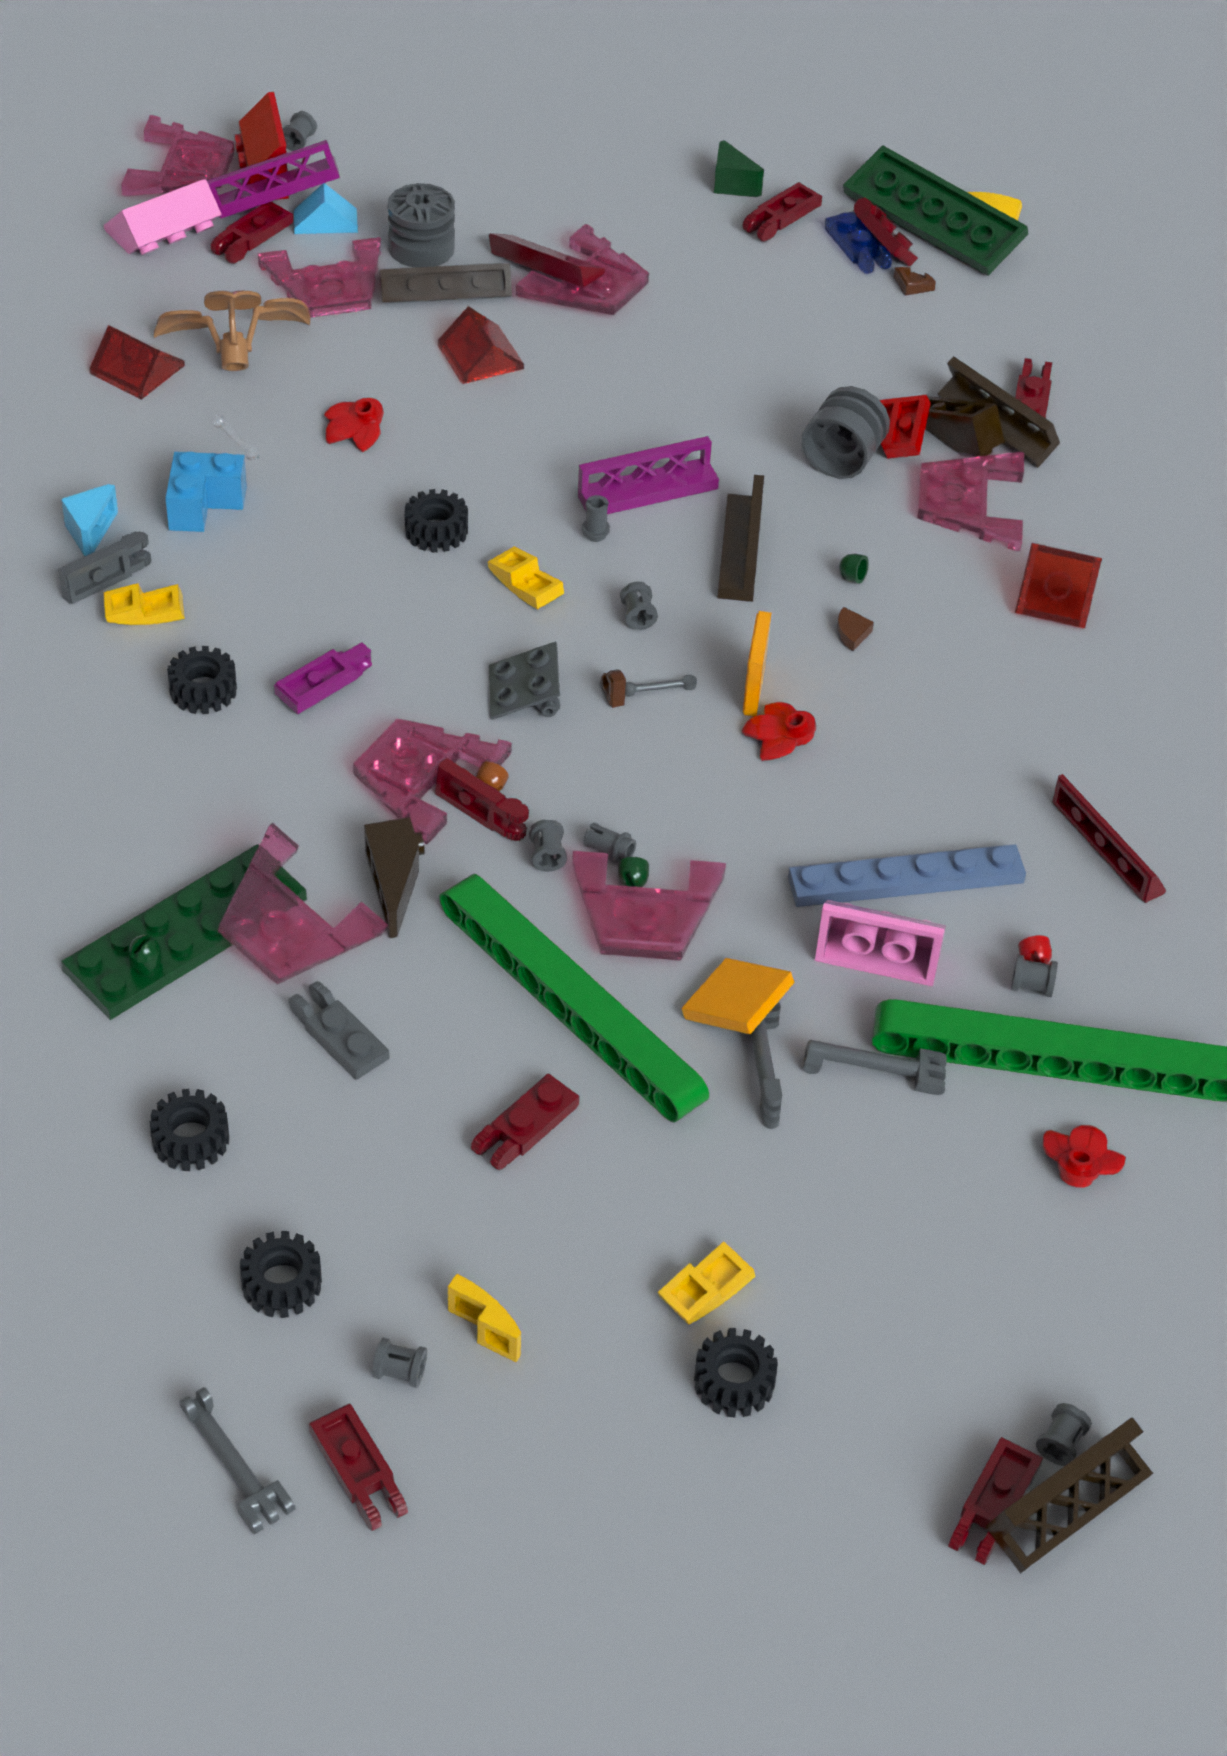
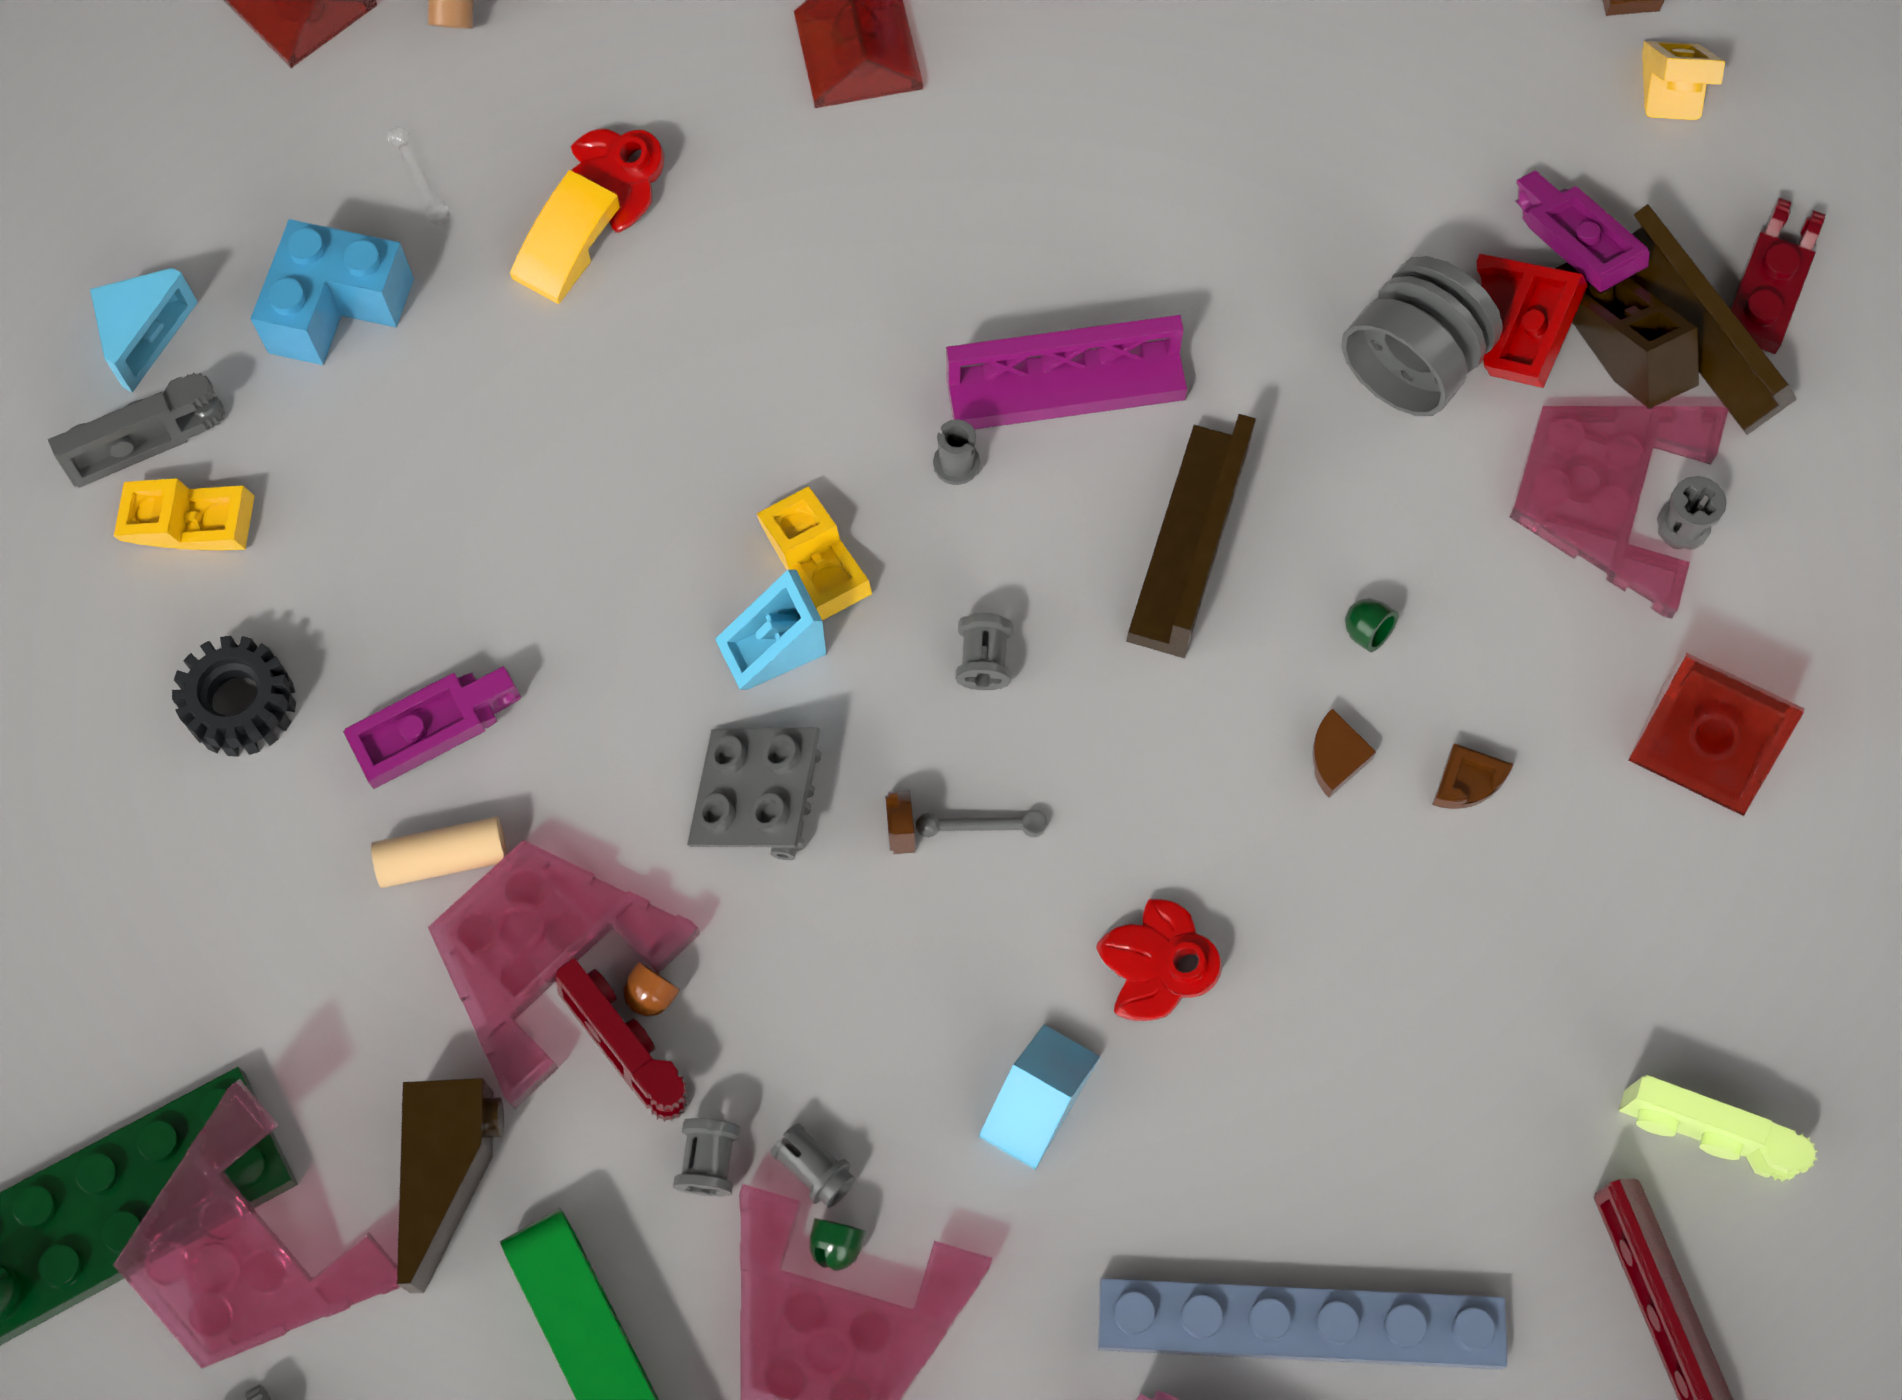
camera: 15 degrees right, 20 degrees up
(333, 452) = (562, 234): none -> yellow slope
(346, 734) = (438, 852): none -> tan piece
(432, 507) = (686, 381): black tyre -> none
(517, 609) = (773, 634): none -> medium azure slope
(727, 799) = (1038, 1096): none -> slope
(756, 663) = (1145, 834): light orange tile -> none
(919, 380) = (1580, 232): none -> magenta hinge
(930, 630) = (1469, 778): none -> reddish brown tile
(952, 313) = (1677, 78): none -> yellow slope
(1017, 497) = (1686, 499): none -> dark grey bush
(1110, 754) = (1719, 1127): none -> yellowish green hinge

